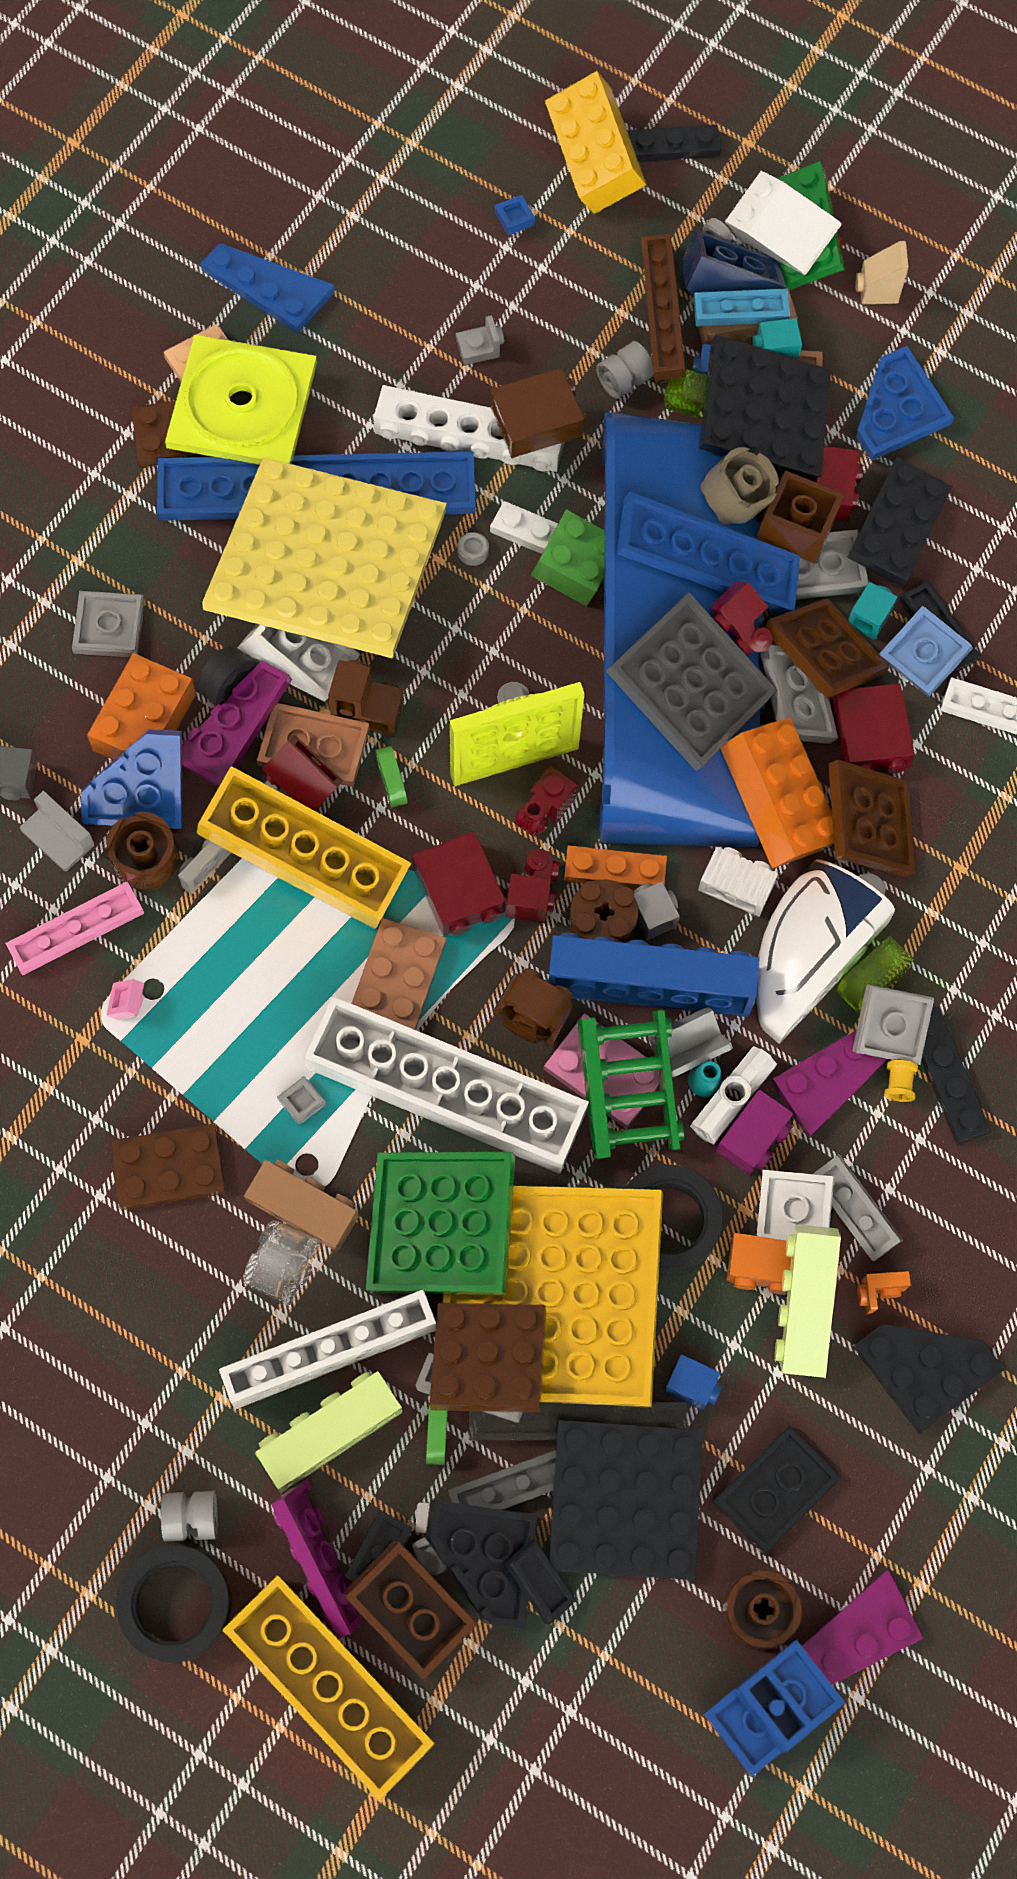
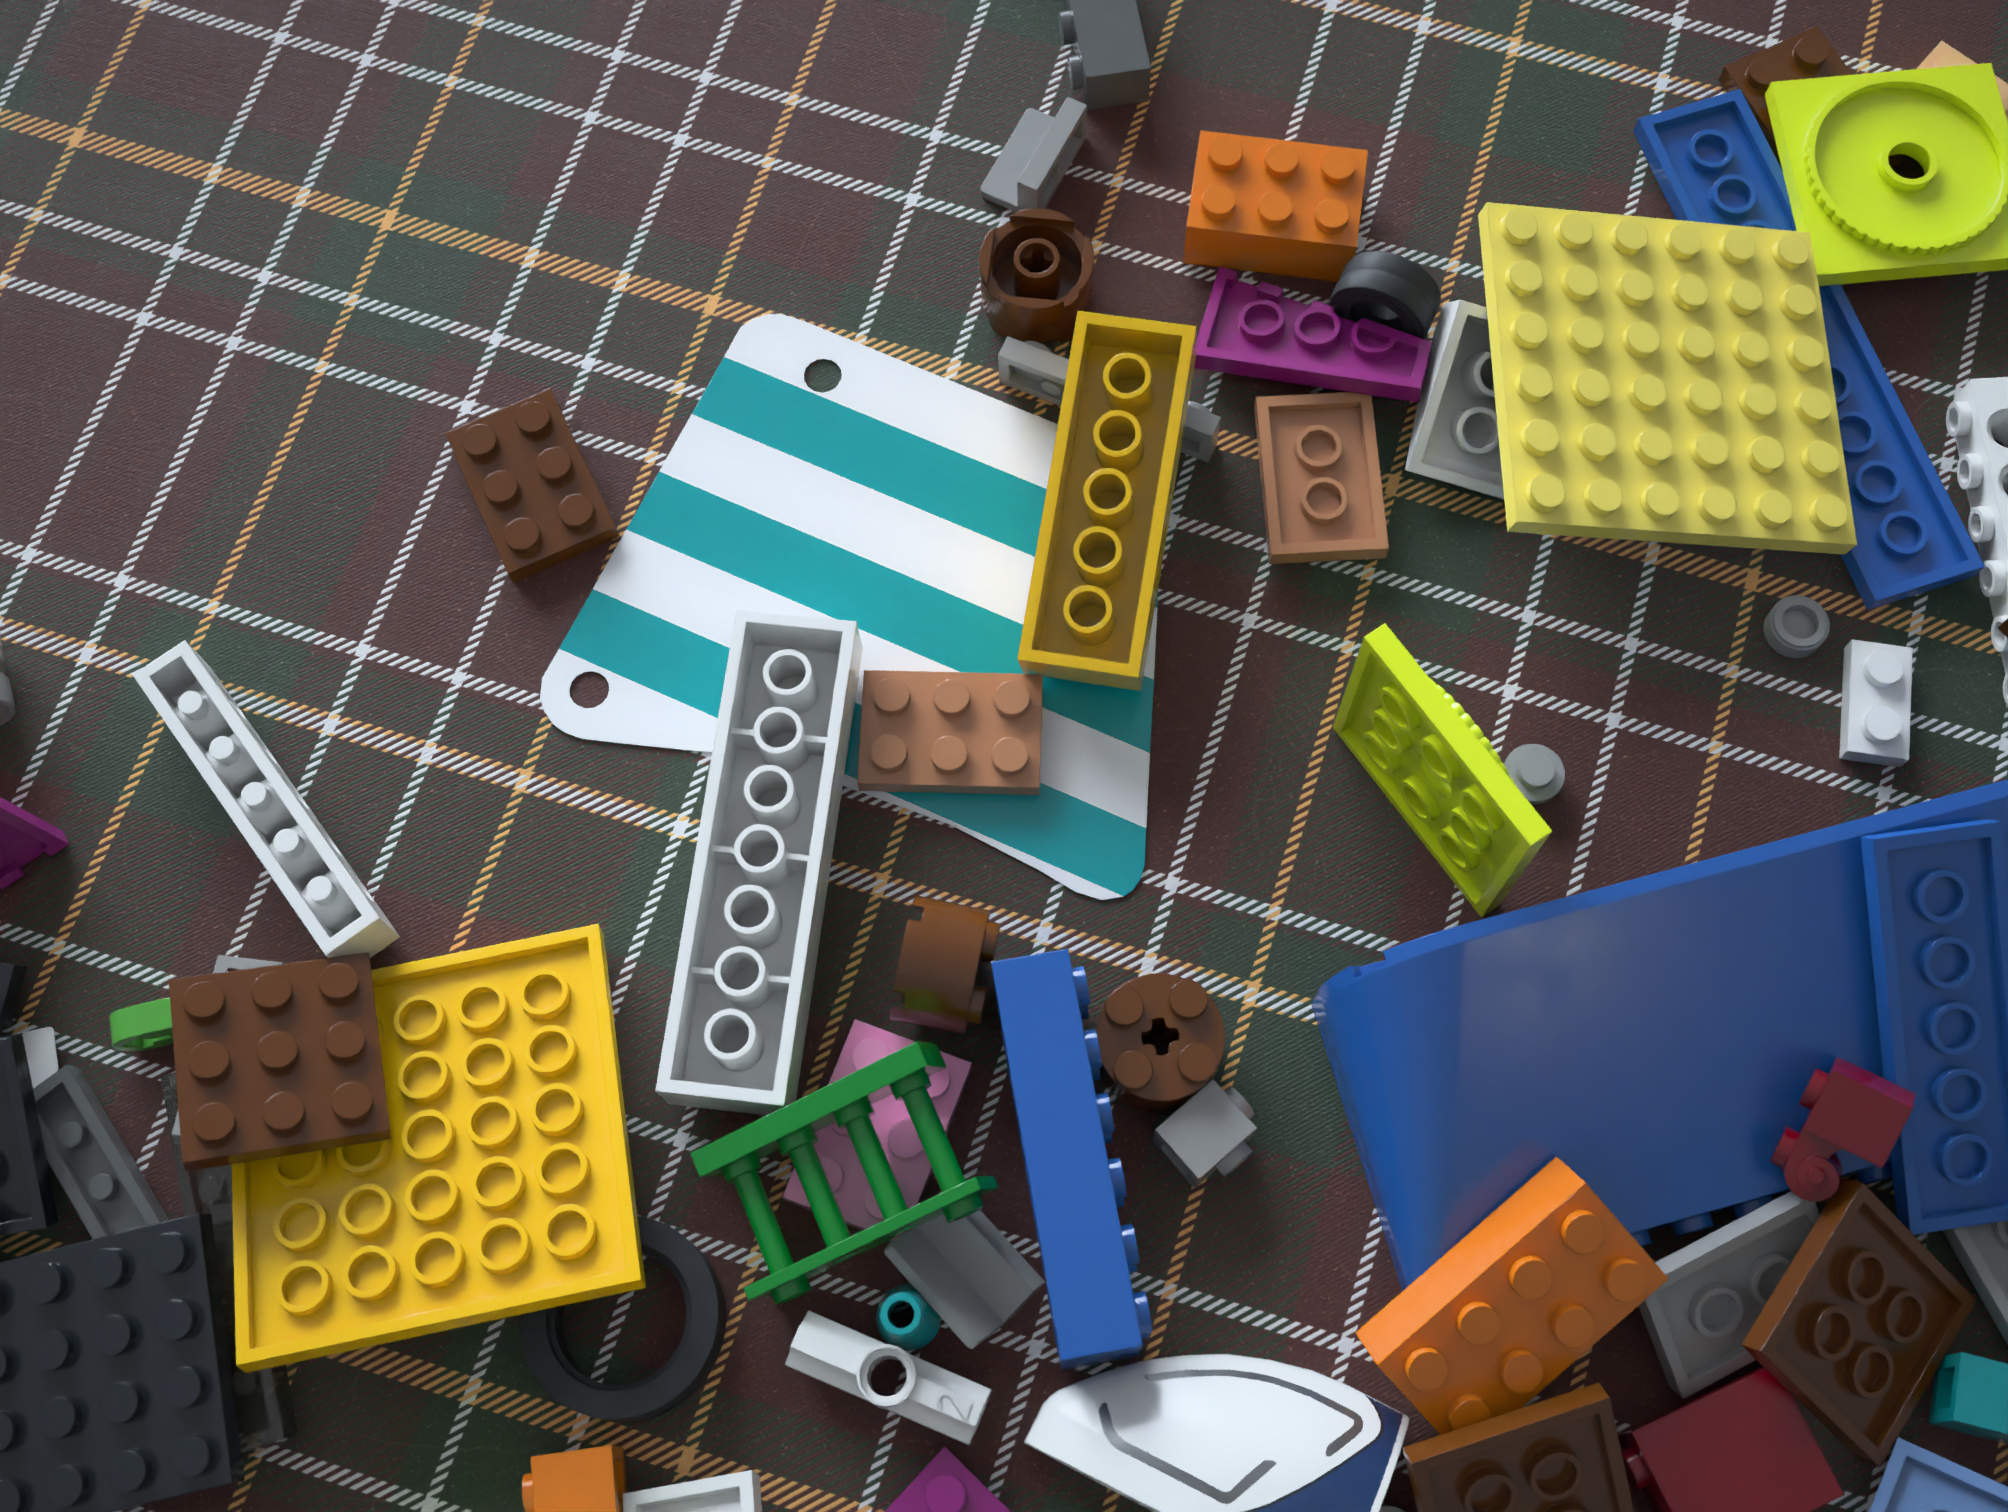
camera: 80 degrees right, 0 degrees up
(74, 928) = (884, 231): bright pink plate -> none
(108, 624) = (1420, 119): light grey tile -> none
(125, 999) = (783, 335): bright pink plate -> none
(139, 780) = (1146, 233): plate -> none
(281, 1261) = (392, 685): clear brick -> none
(301, 774) = (1248, 466): dark red brick -> none
(301, 1100) = (690, 646): light grey tile -> none
(302, 1204) = (505, 696): medium nougat brick -> none
(329, 1431) = (138, 850): yellowish green brick -> none
(360, 699) = (1425, 513): reddish brown brick -> none
(391, 776) = (1305, 614): bright green beam -> none
(441, 1223) = (515, 923): green plate -> none
(459, 884) = (1141, 779): dark red brick -> none
(530, 895) = (1164, 912): dark red brick -> none
(548, 799) = (1358, 882): dark red brick -> none
(573, 558) = (1844, 777): bright green brick -> none
(626, 868) = (1269, 1045): orange plate -> none
(691, 681) = (1663, 1061): dark grey plate -> none
(694, 1383) = (329, 1445): blue brick -> none
(738, 880) = (1316, 1276): white brick -> none
(755, 1132) = (826, 1439): magenta brick -> none

